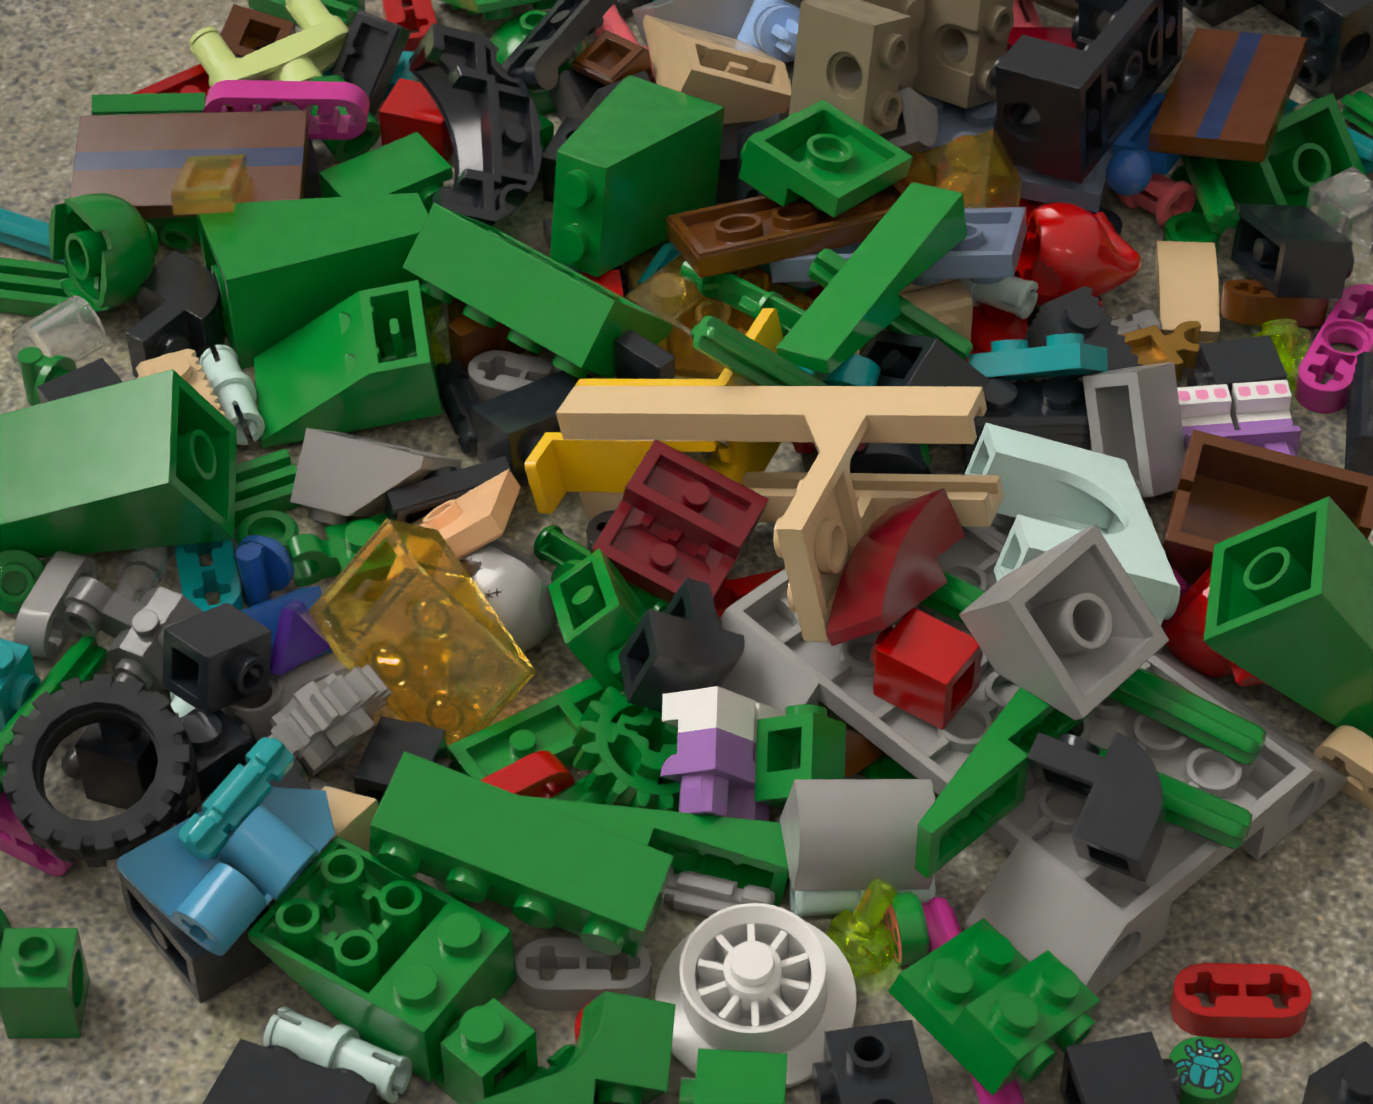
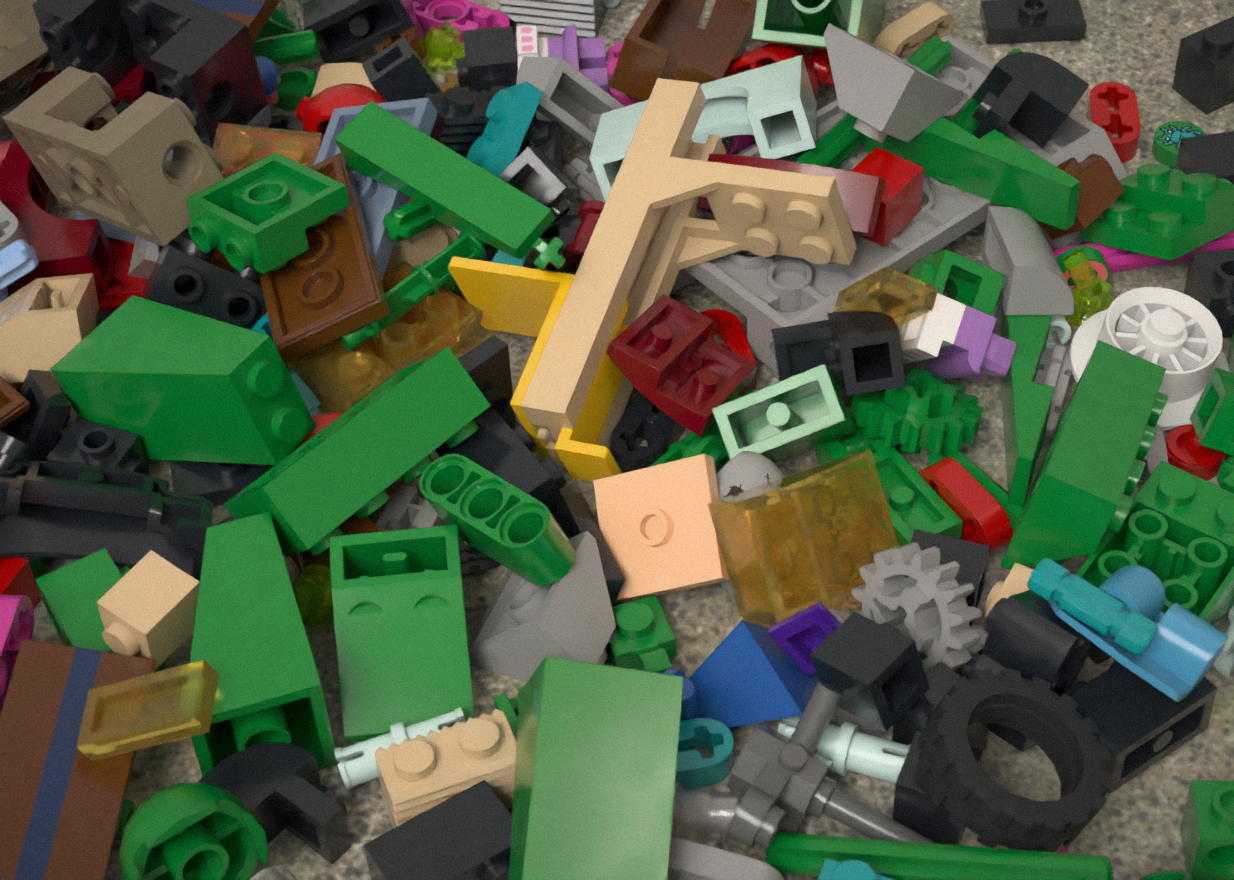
camera: 85 degrees left, 0 degrees up
(345, 173) = (149, 609): none -> tan brick
(430, 385) = (498, 519): none -> green beam
(738, 661) = (889, 293): none -> clear yellow tile
(994, 887) = (1096, 192): none -> reddish brown brick
(1135, 283) = (400, 73): none -> black brick

